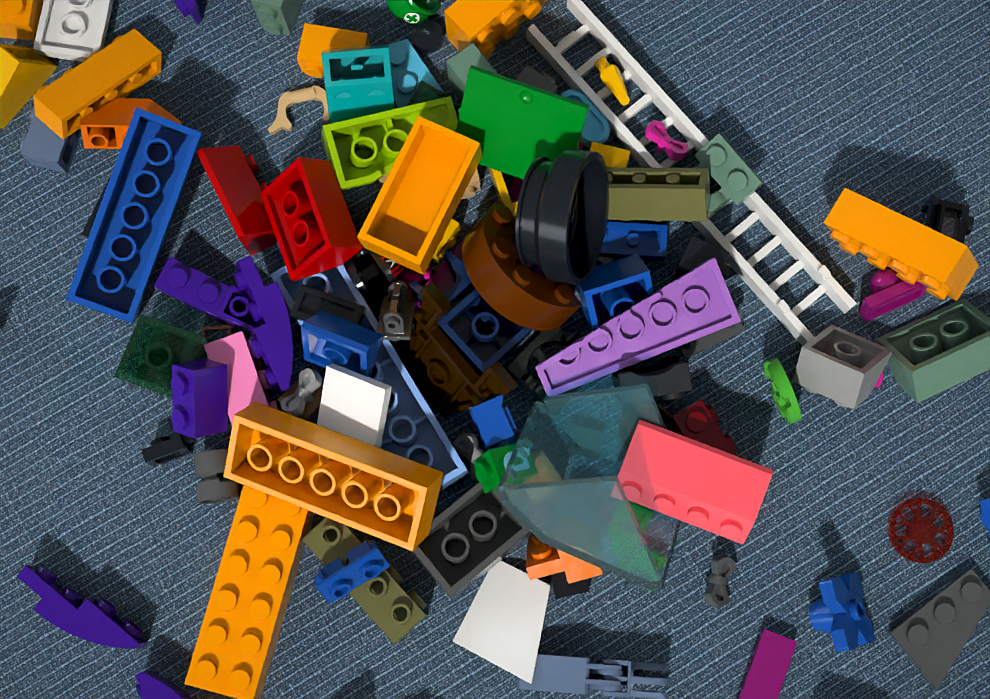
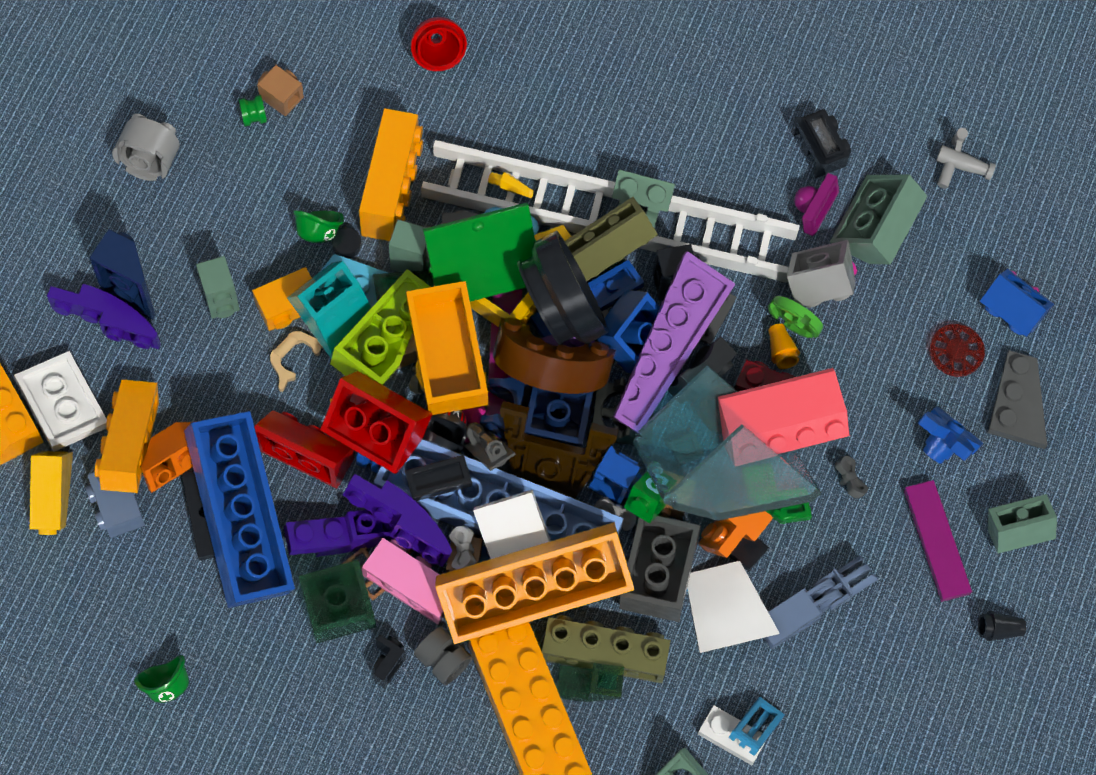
camera: 45 degrees left, 10 degrees down
(199, 398) = (391, 603): dark purple brick -> none
(335, 615) = (592, 684): none -> clear green slope
(337, 580) = (593, 656): blue hinge -> none
(340, 342) = (469, 489): blue slope -> none
(657, 133) = (592, 203): dark pink piece -> none
(750, 410) = (783, 349): none -> light orange cone
(901, 244) = (800, 163): light orange brick -> none

